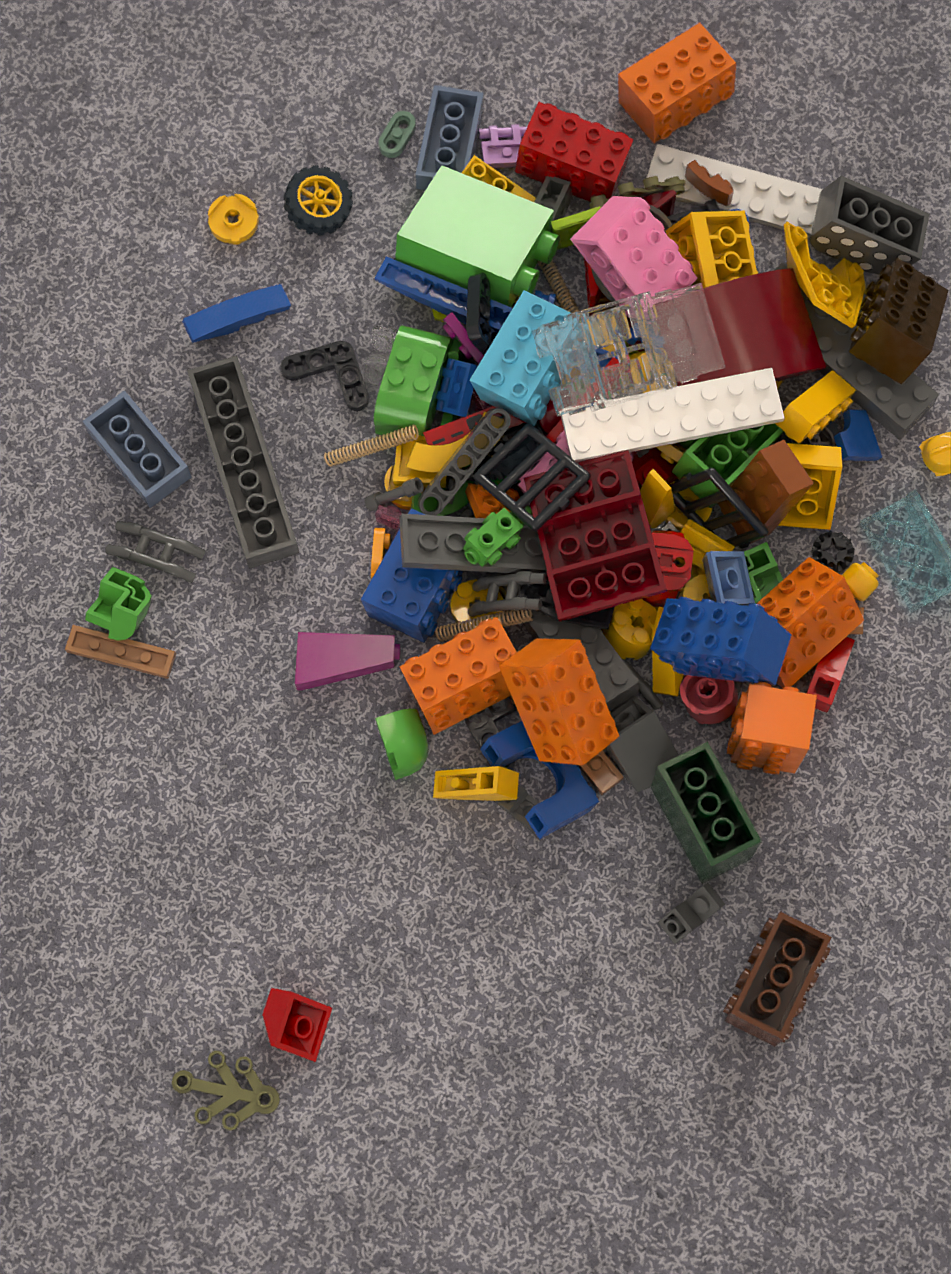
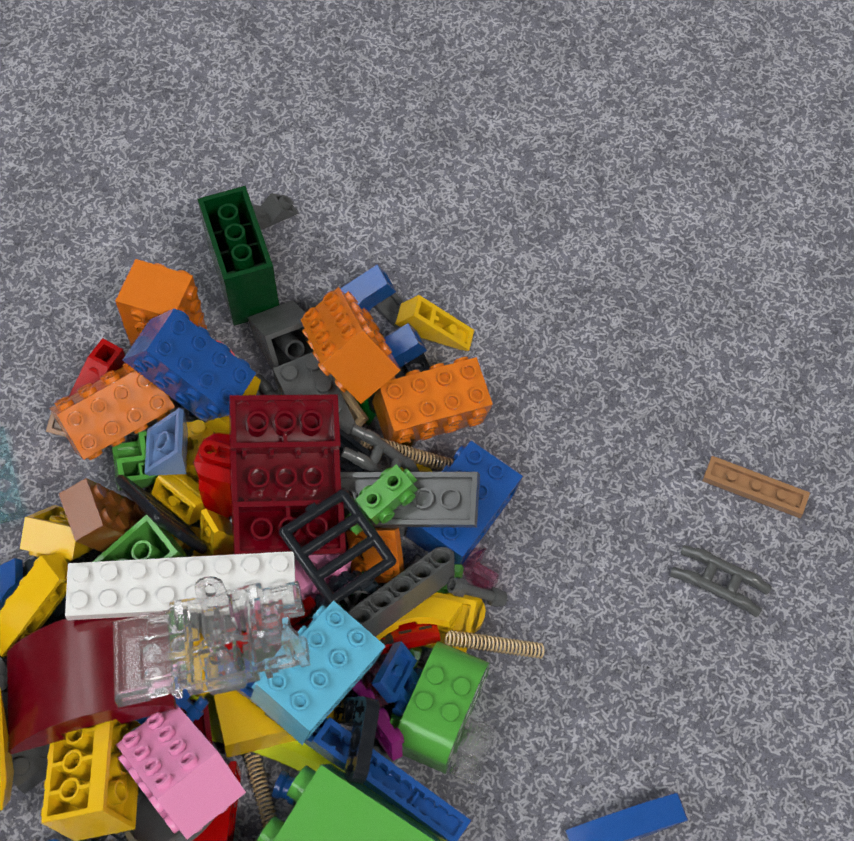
camera: 175 degrees left, 10 degrees down
(120, 604) = (756, 520): bright green brick -> none
(137, 449) = (739, 679): sand blue brick -> none
(231, 1092) = (667, 139): olive plant -> none
(243, 462) = (630, 654): dark grey brick -> none
(295, 1023) = (611, 173): red slope -> none
(340, 365) = (518, 750): black beam -> none
(340, 656) = (545, 451): magenta slope -> none
(381, 541) = (495, 553): light orange plate -> none
(403, 741) = (498, 363): bright green brick -> none
(777, 979) = (210, 141): reddish brown brick -> none
(843, 558) = (46, 496): black gear -> none
(861, 580) = (43, 454): yellow head -> none

